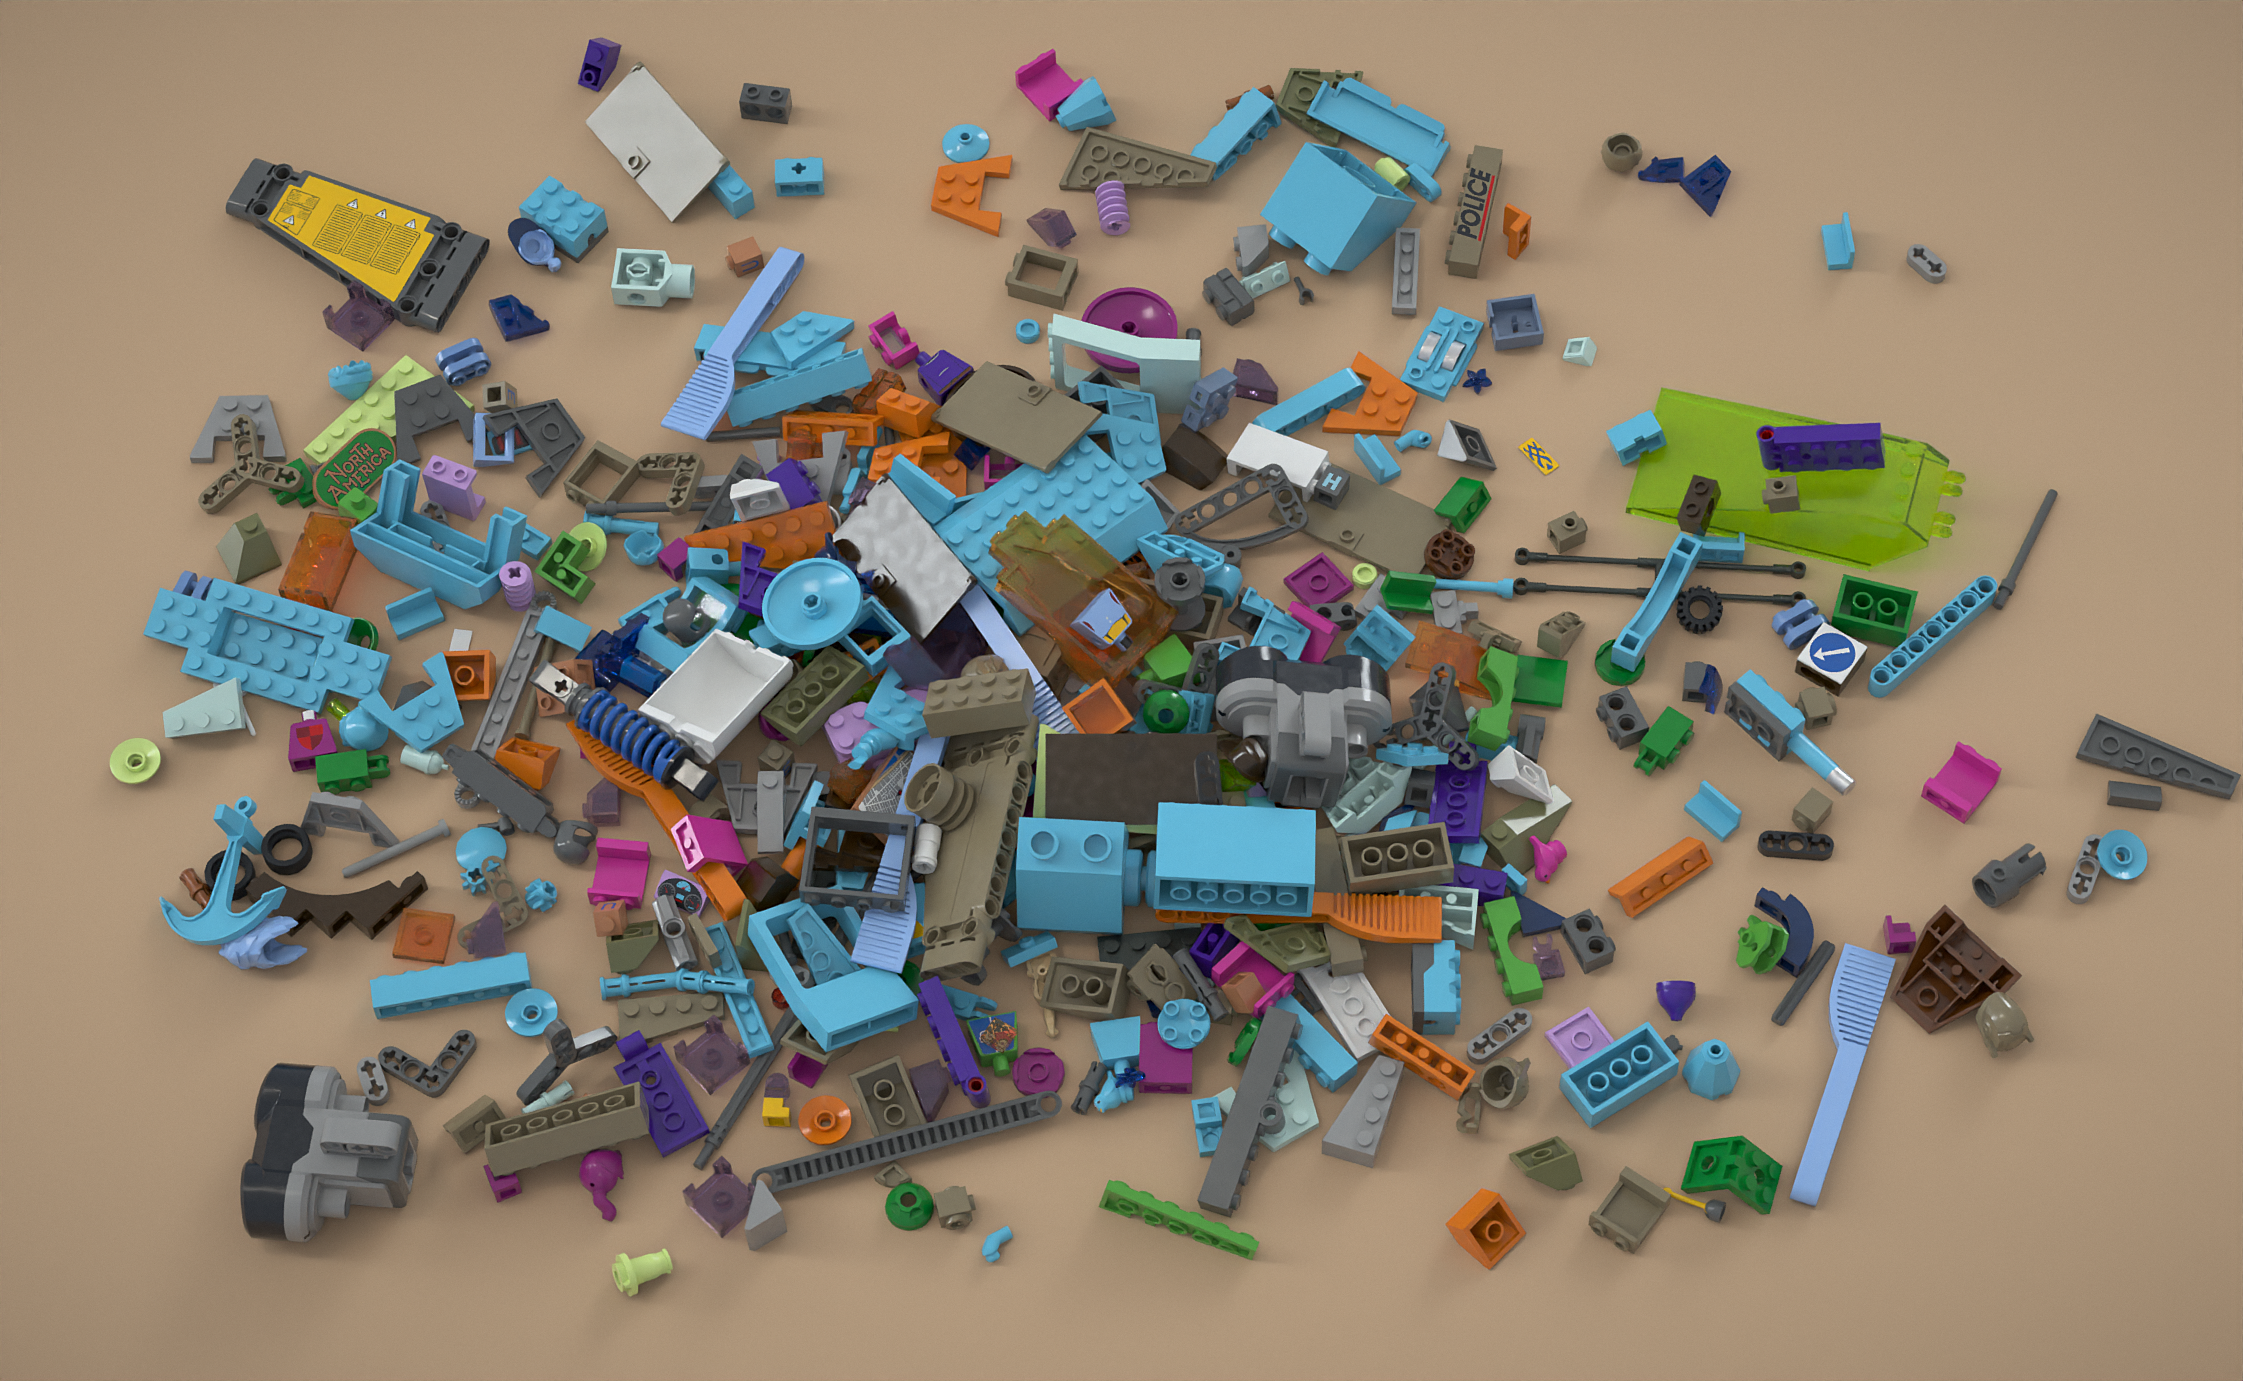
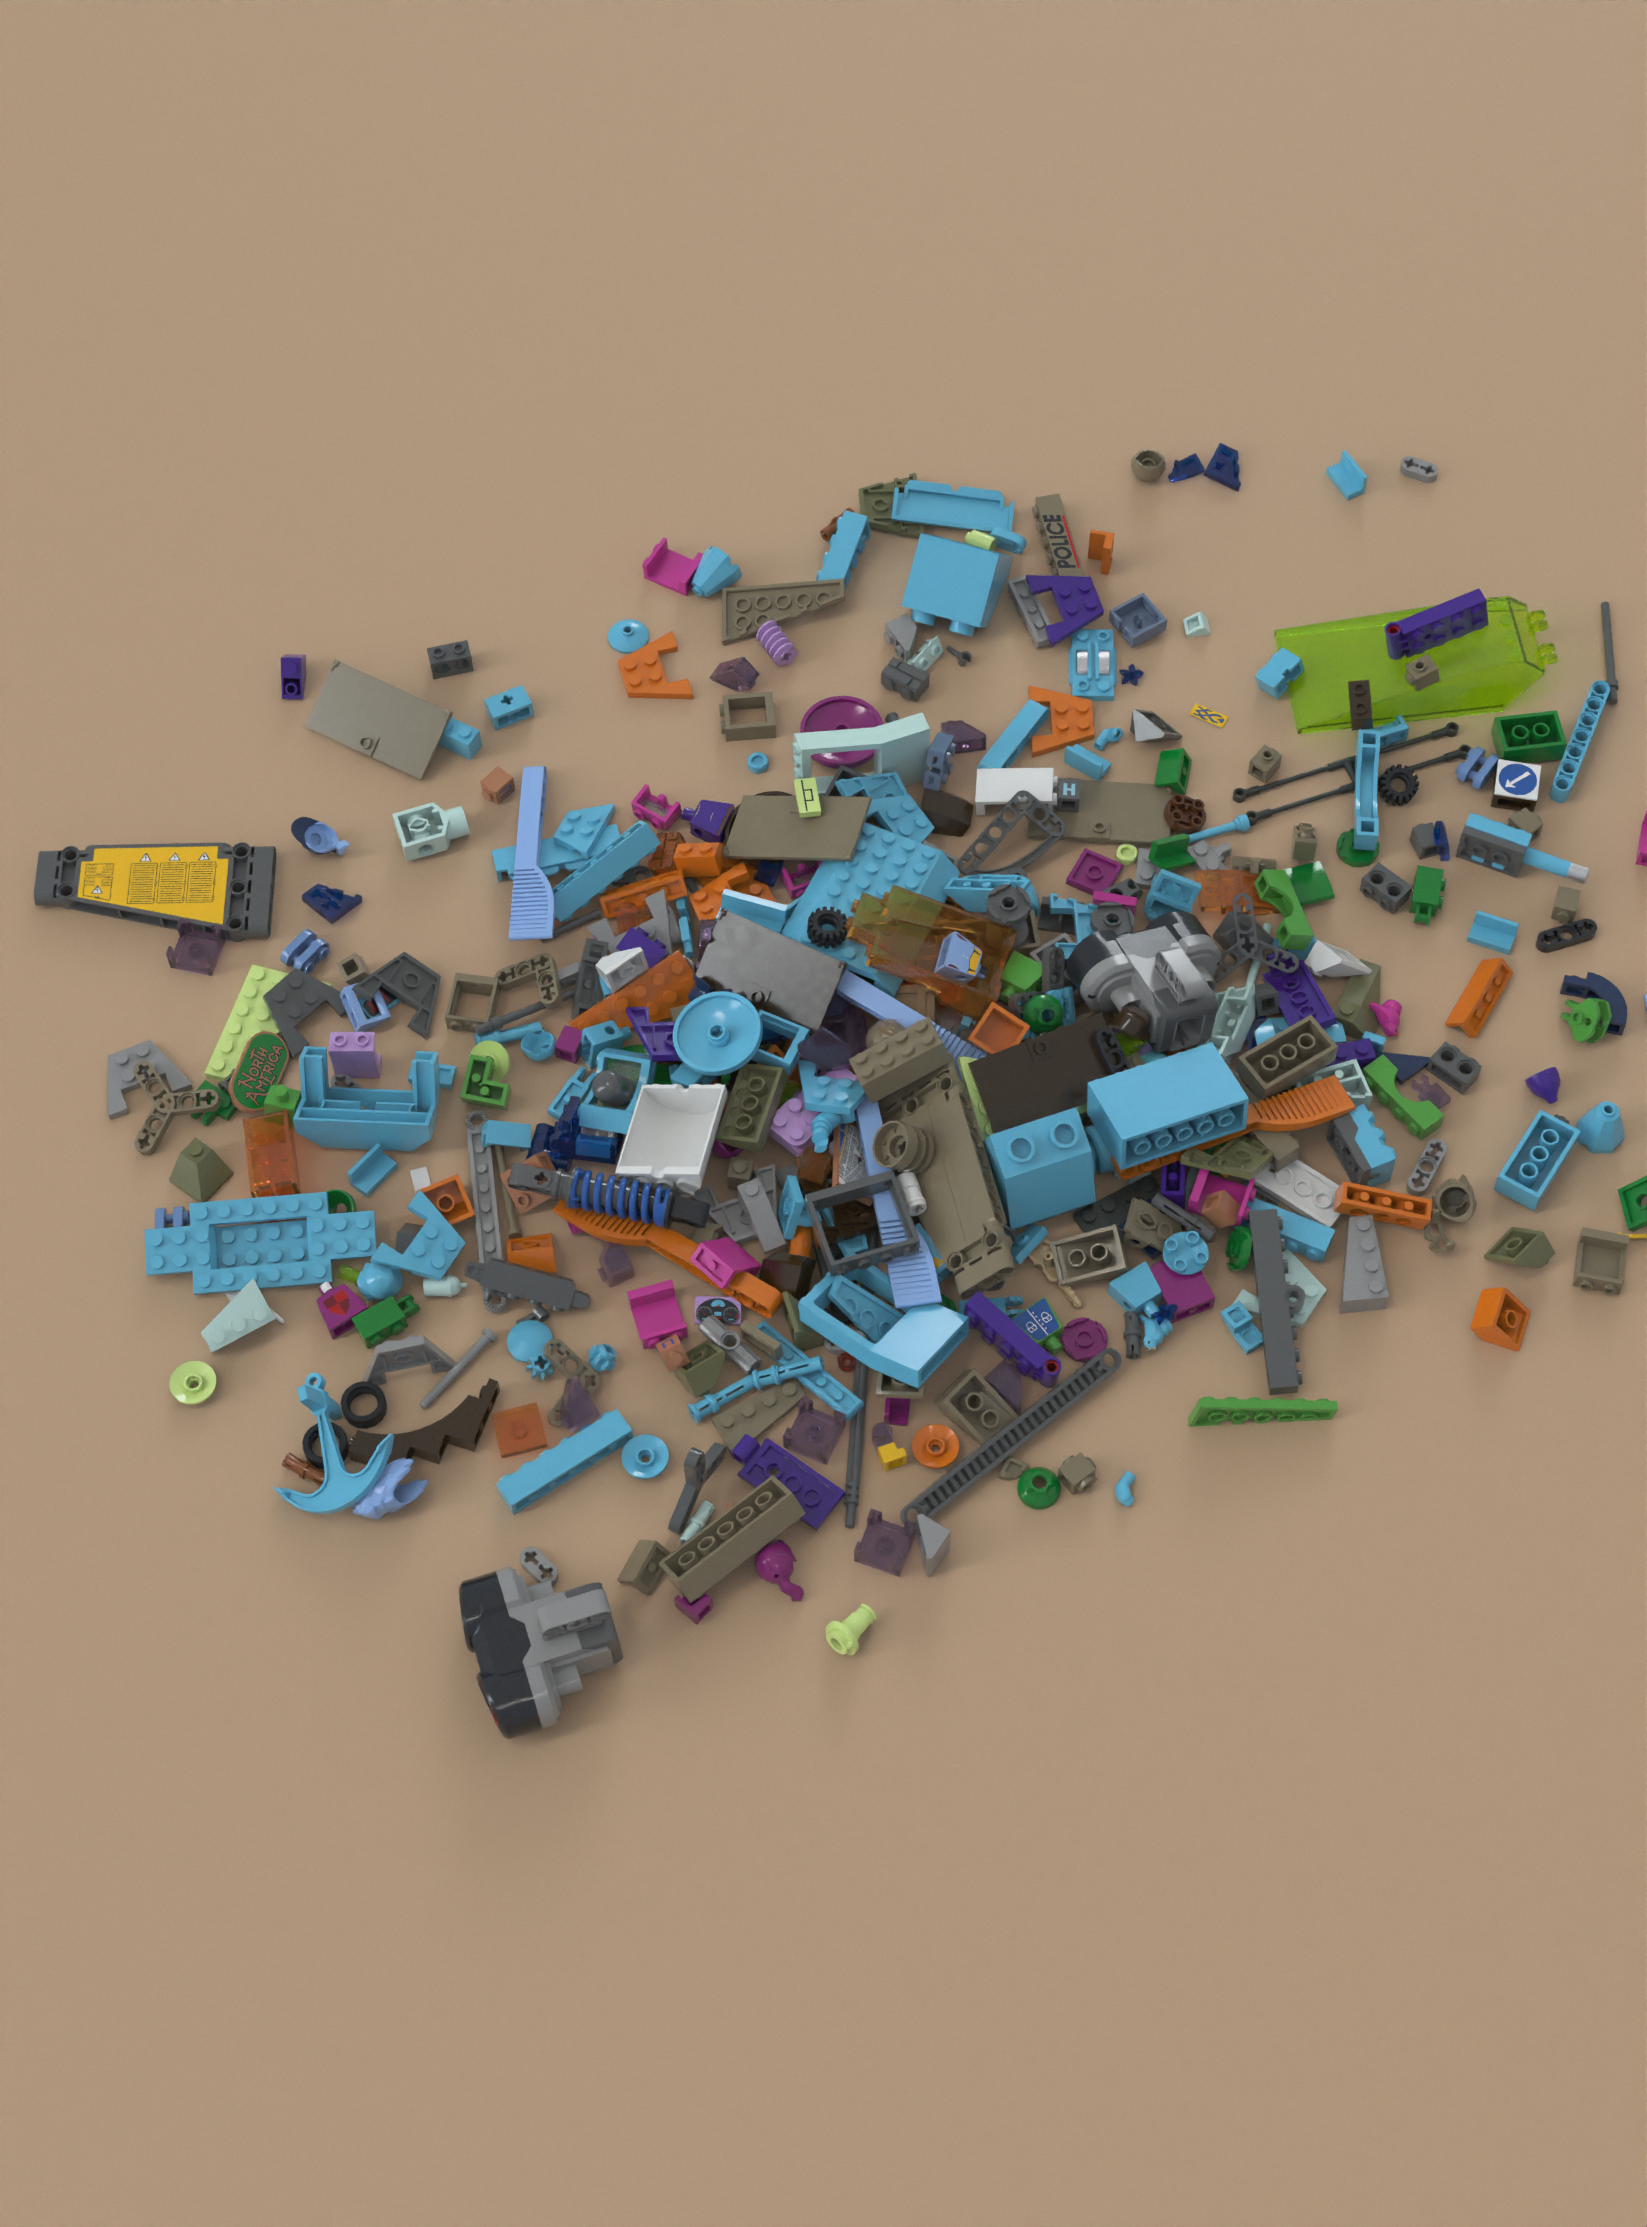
camera: 25 degrees left, 0 degrees up
(351, 380) = (218, 1000): medium azure hair -> none
(433, 1072) = (587, 1539): dark grey beam -> none
(517, 585) = (450, 1114): lavender piece -> none
(566, 217) = (333, 805): medium azure piece -> none
(572, 847) = (605, 1308): dark grey helmet -> none
(975, 522) = (825, 937): none -> black tyre
(999, 1035) = (1043, 1320): clear orange tile -> none
(1038, 387) = (807, 797): none -> yellowish green tile
(1298, 629) = (1112, 910): none -> dark grey plate
(1412, 755) = (1247, 975): medium azure plate -> none
(1454, 276) = (1075, 600): none -> dark purple wing
(1530, 734) = (1322, 927): dark grey piece -> none
(1579, 1037) = (1489, 1146): lavender tile -> none
(1803, 983) = (1630, 1037): dark grey axle -> none

